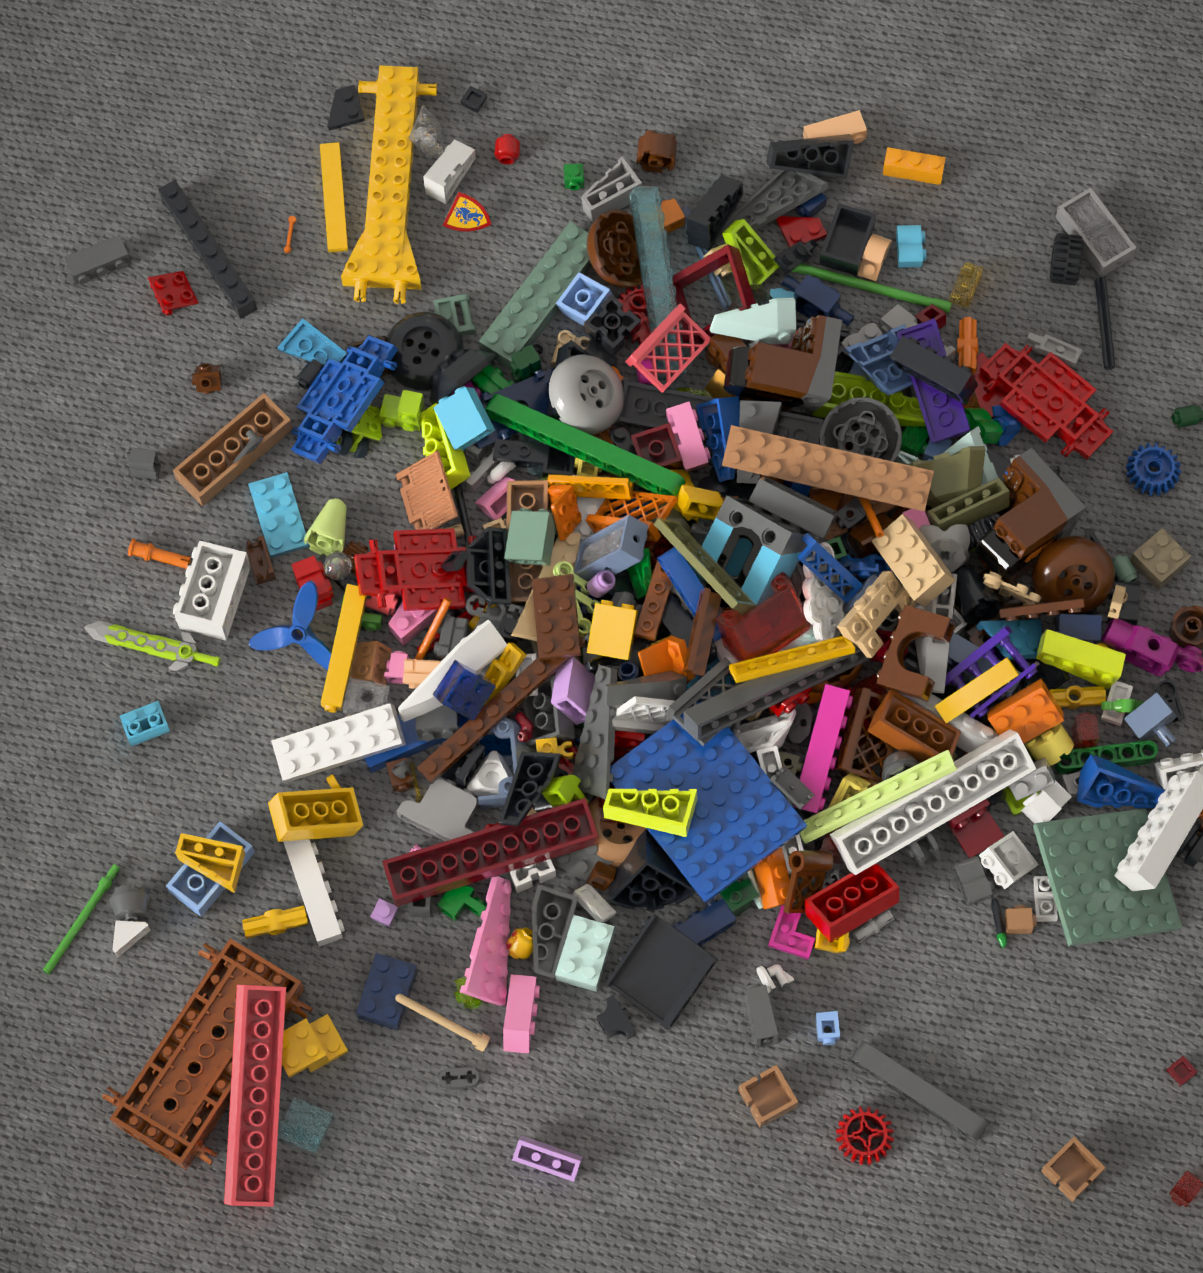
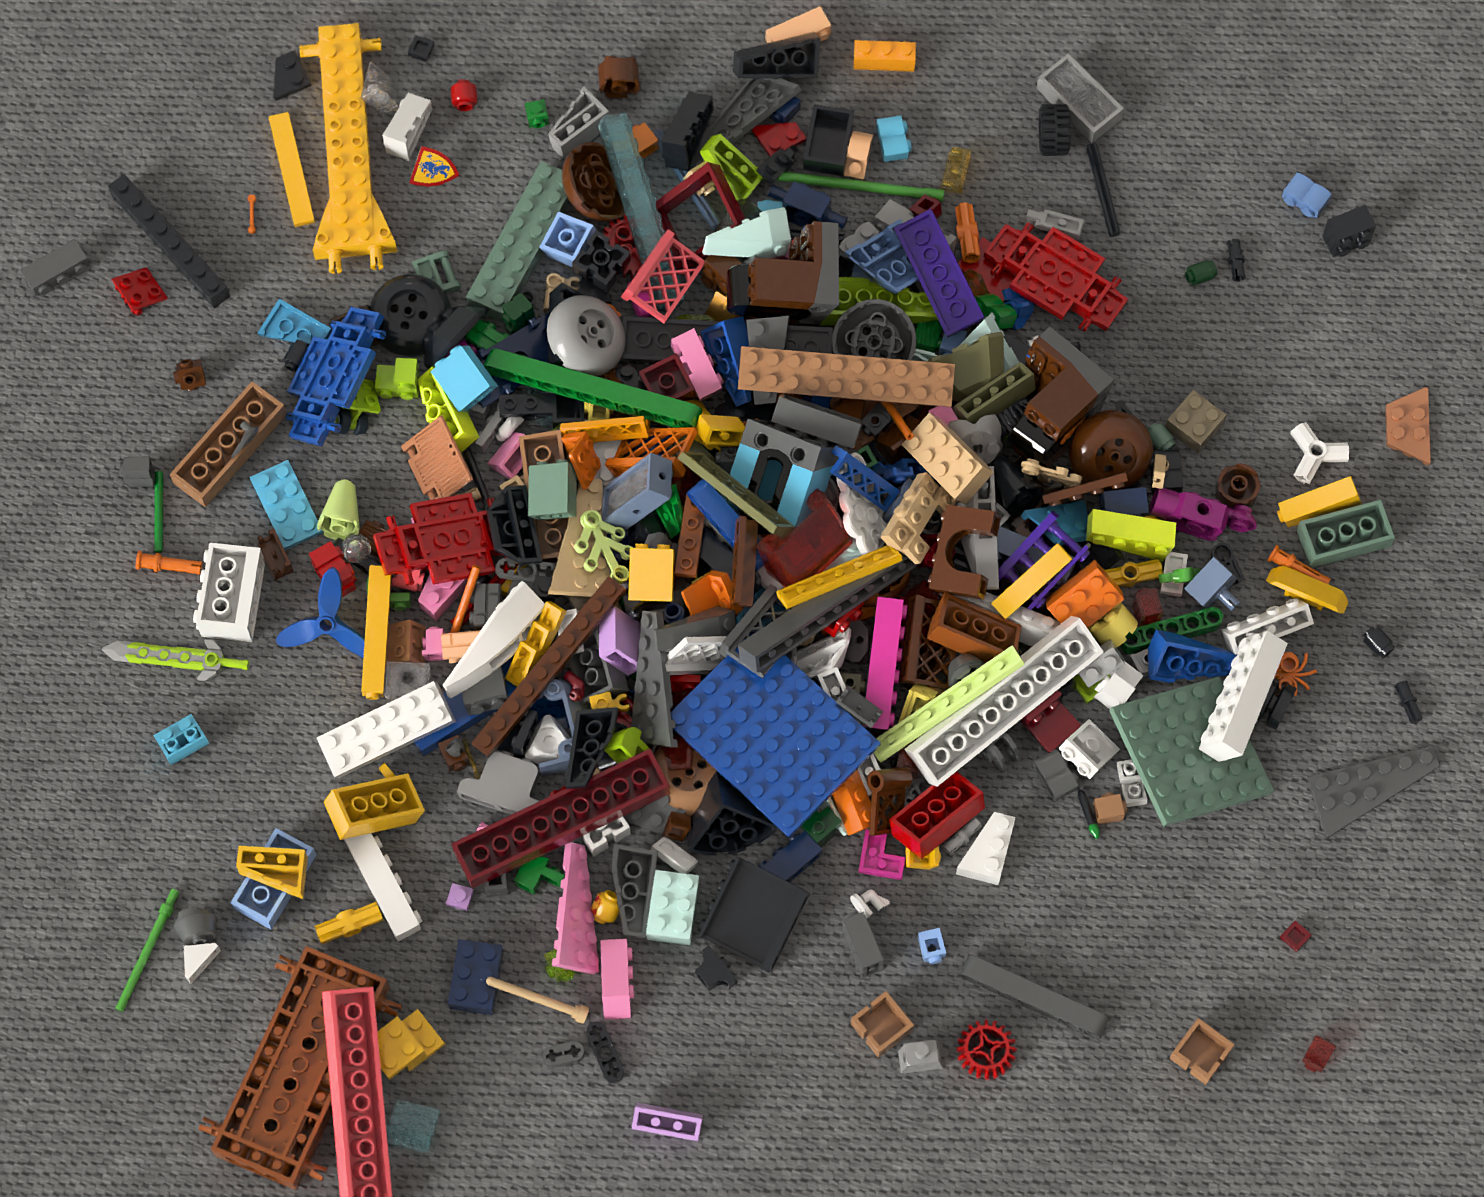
camera: 10 degrees left, 0 degrees up
(158, 504) = (158, 531): none -> green bar
(455, 561) = (477, 526): black plate -> none
(464, 690) = (508, 656): clear blue brick -> none
(508, 1096) = (605, 1069): none -> black beam
(556, 617) = (591, 568): reddish brown plate -> none
(601, 583) = (632, 527): lavender brick -> none
(652, 809) = (721, 749): neon yellow wedge -> none
(800, 1132) = (920, 1056): none -> light grey torso
(897, 943) = (988, 852): none -> white wedge
(934, 370) = (939, 261): black brick -> none
(1150, 481) = (1177, 319): blue gear -> none

